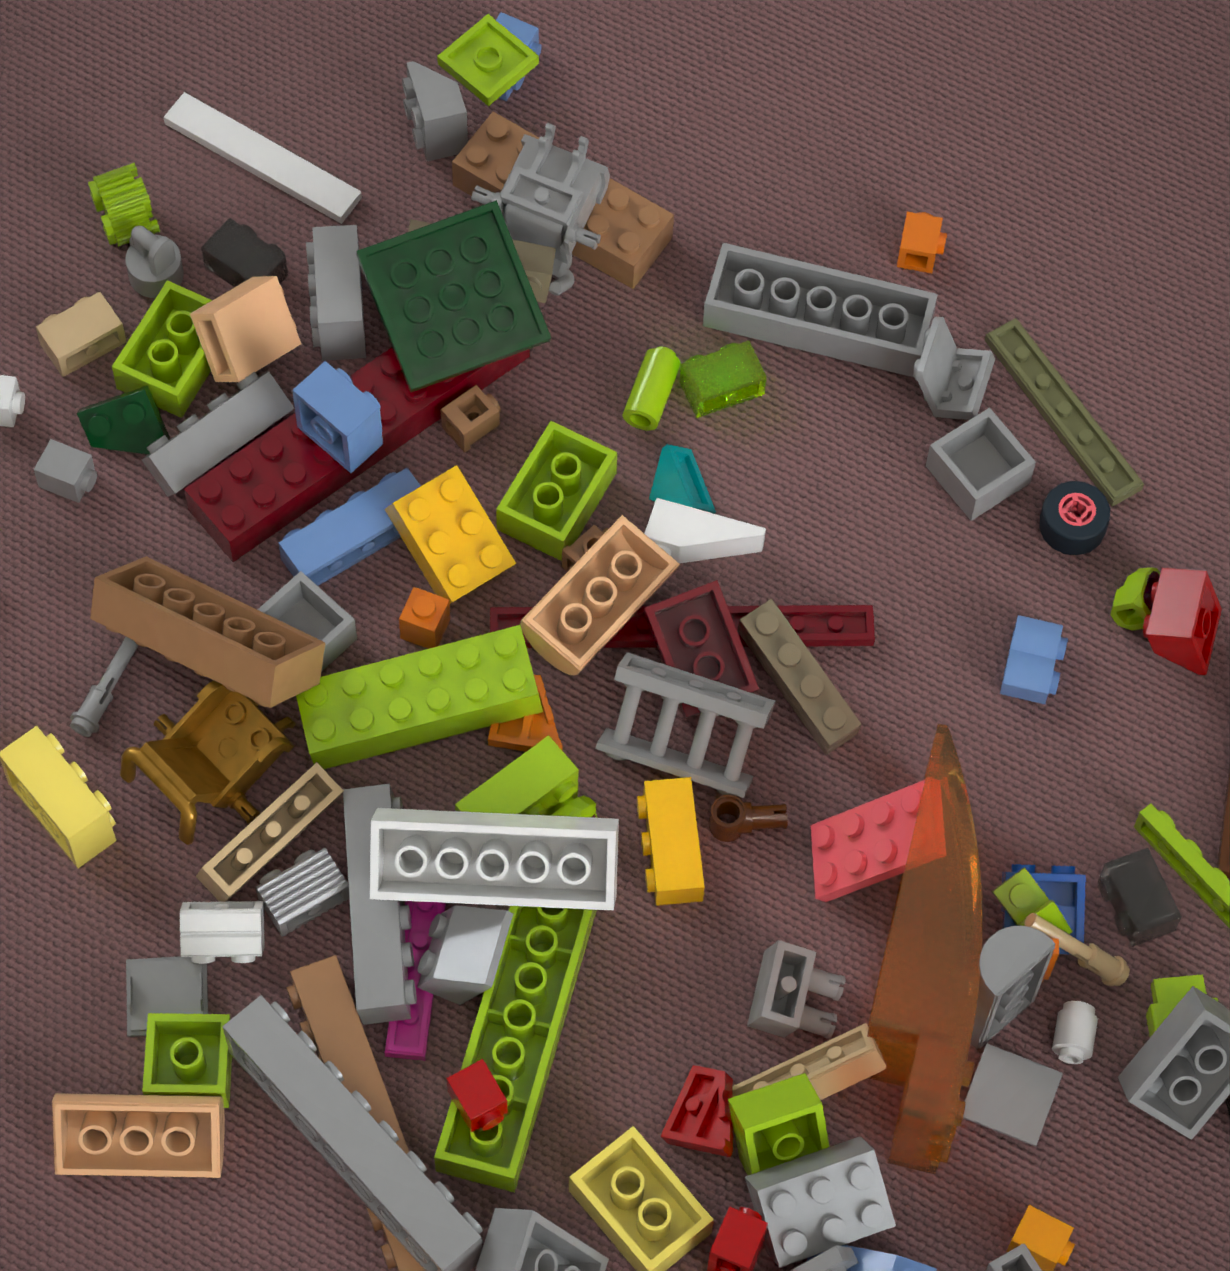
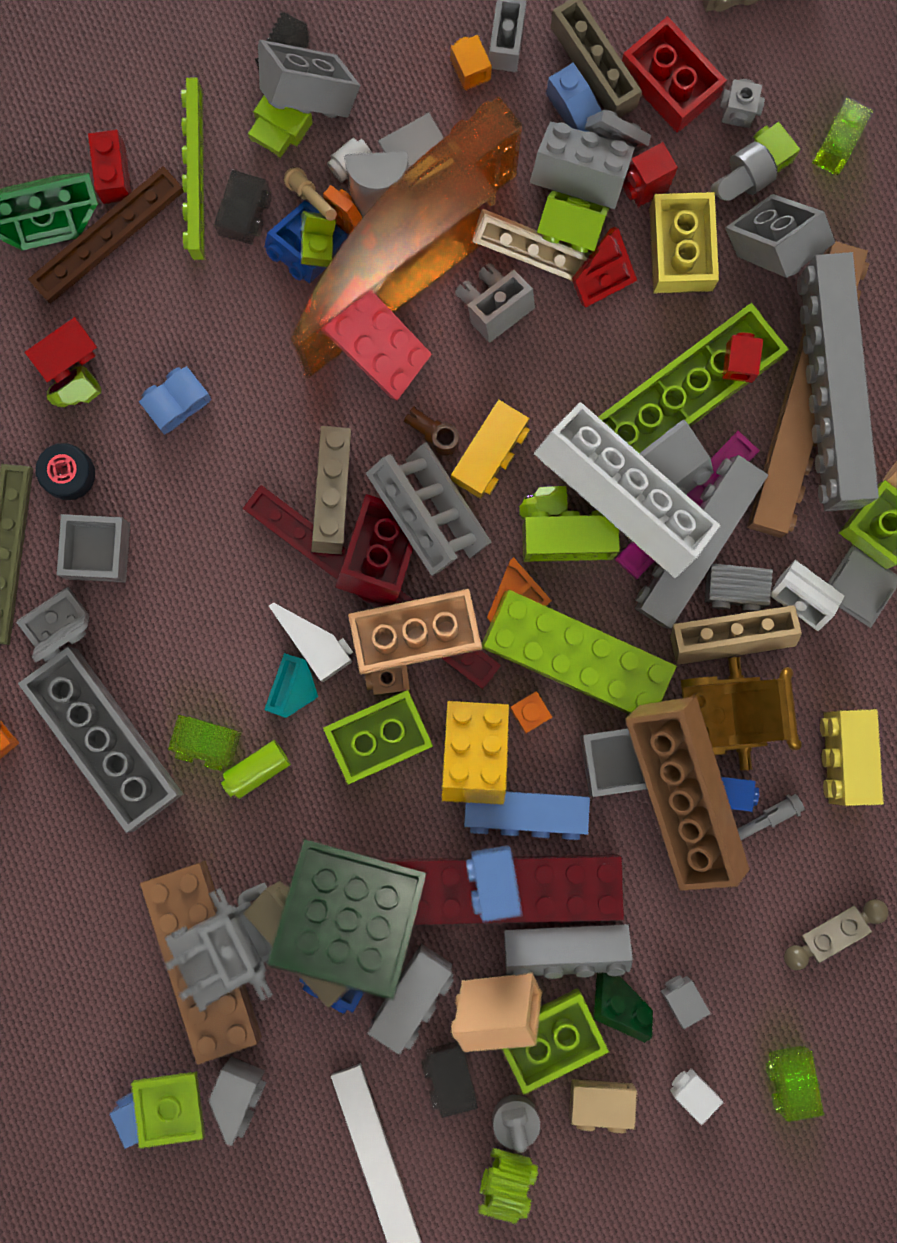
camera: 140 degrees left, 20 degrees up
(156, 688) = (741, 793): none -> blue brick
(470, 406) = (402, 840): medium nougat brick -> none

